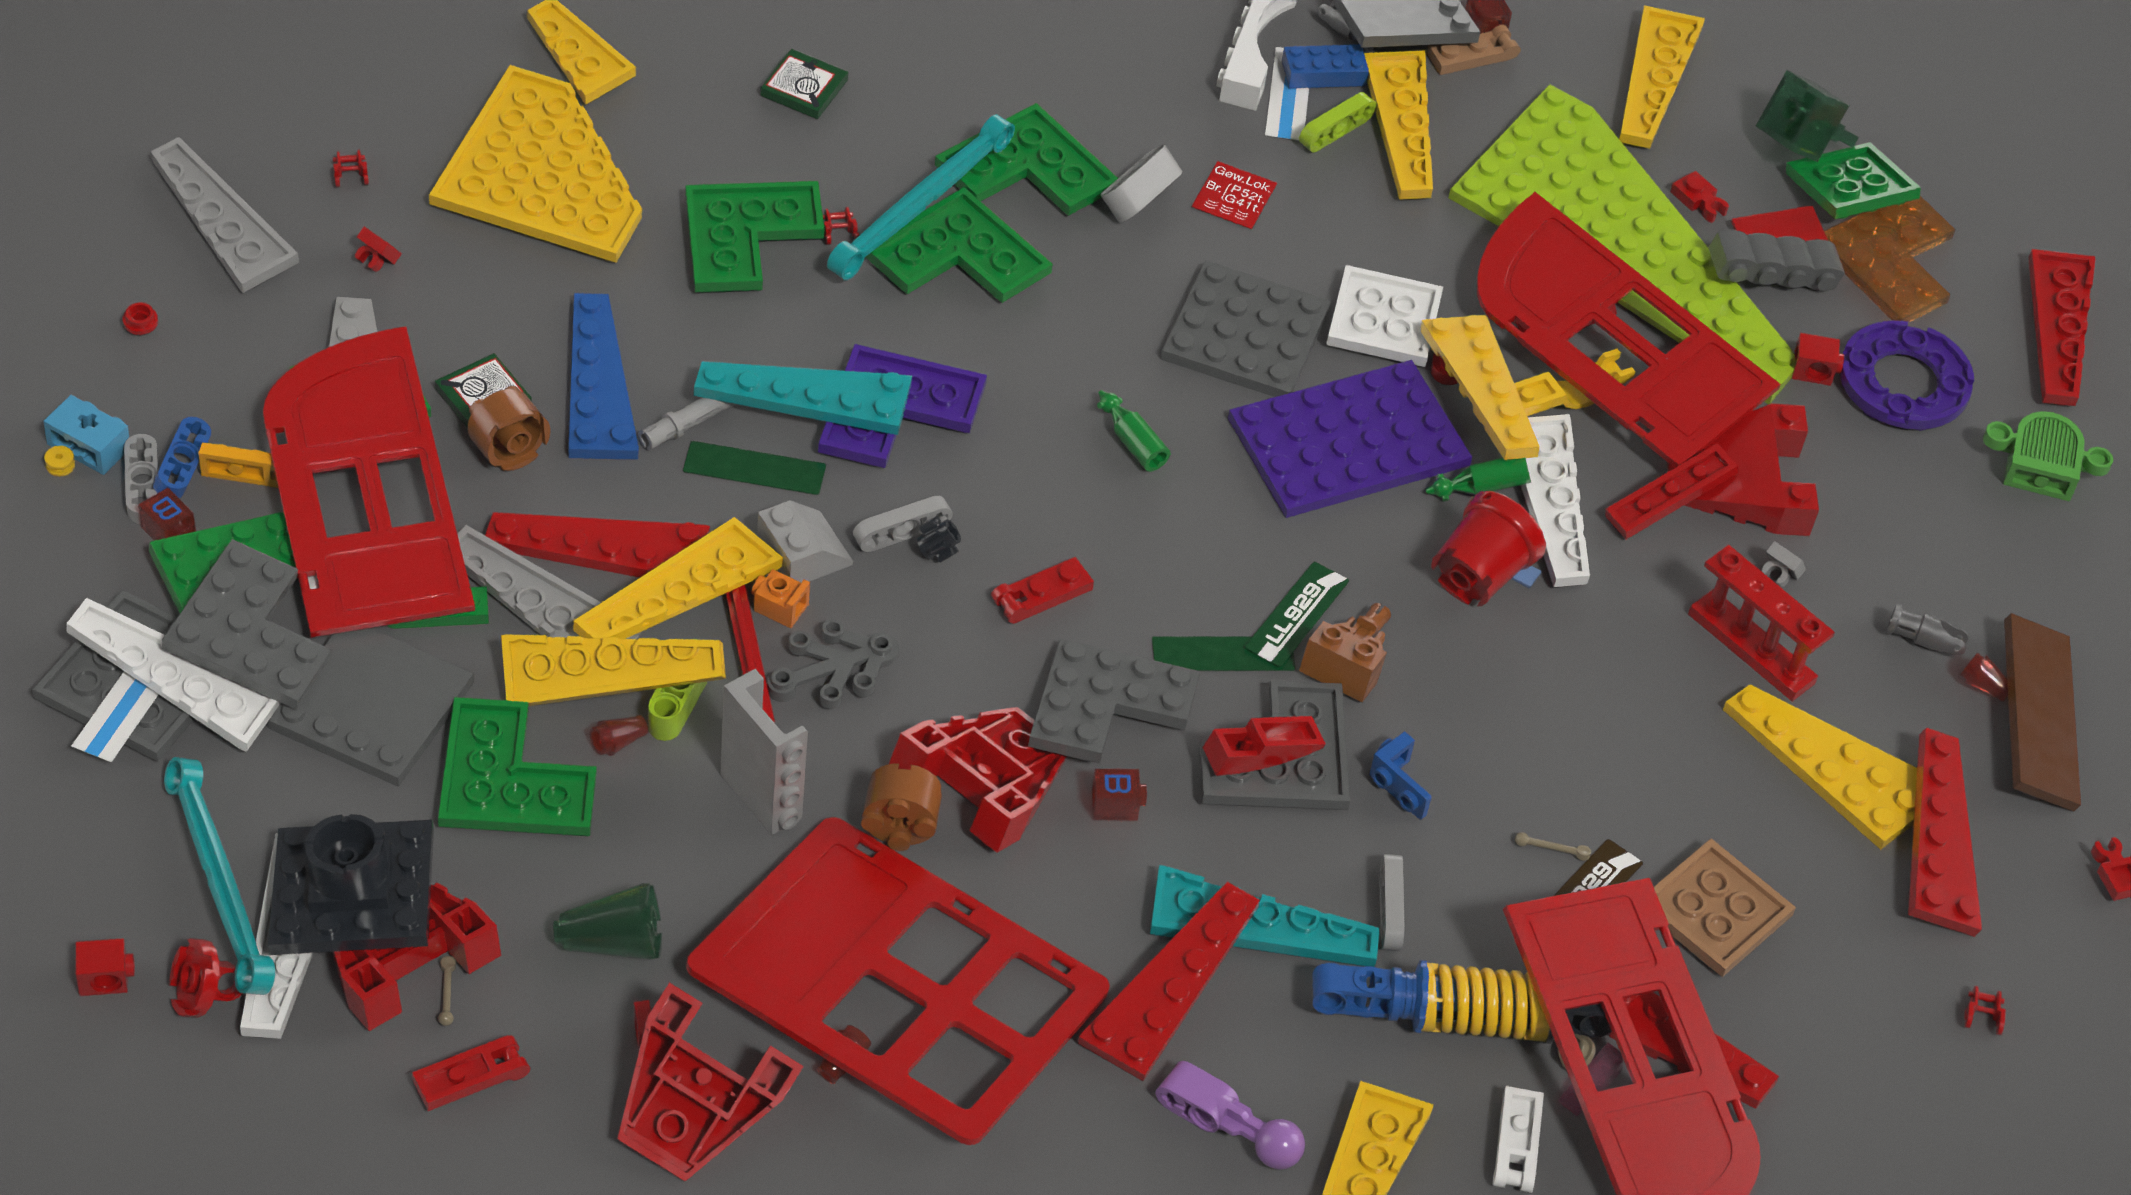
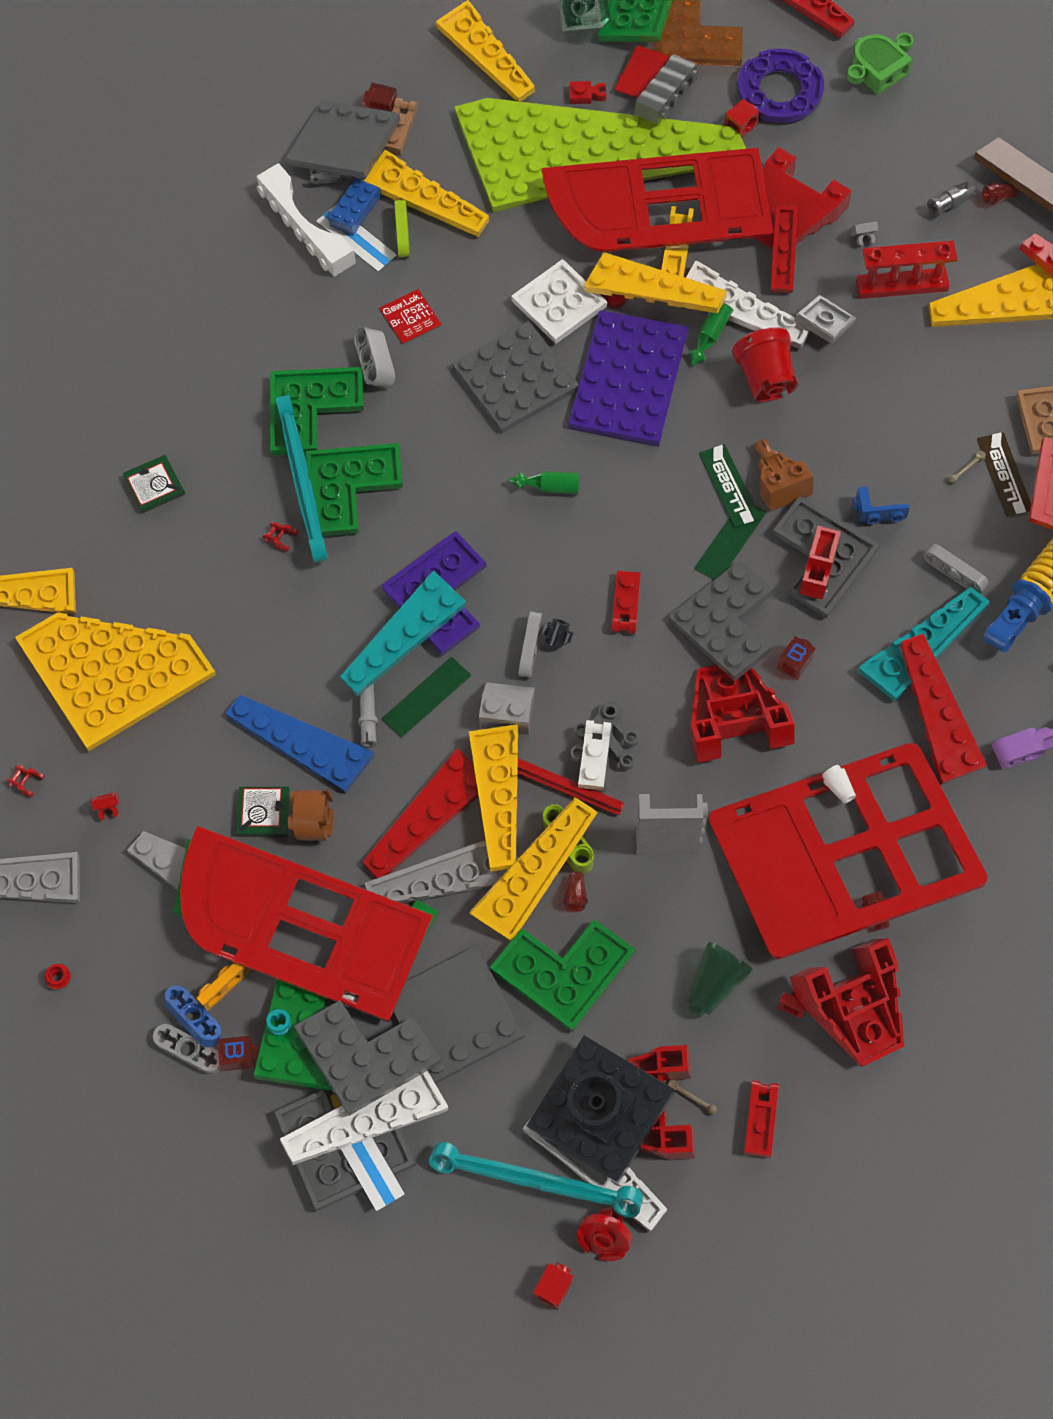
camera: 45 degrees left, 15 degrees up
(59, 461) = (141, 1094): yellow piece -> none
(88, 432) = (146, 1061): dark azure brick -> none
(234, 521) = (281, 1029): none -> teal bush
(731, 220) = (234, 592): green plate -> none
(780, 597) = (537, 751): orange brick -> none
(807, 654) = (594, 756): none -> white plate
(902, 805) = (738, 773): dark orange brick -> none
(980, 918) = (839, 783): none -> white cone
(1616, 586) = (825, 319): none -> light grey tile

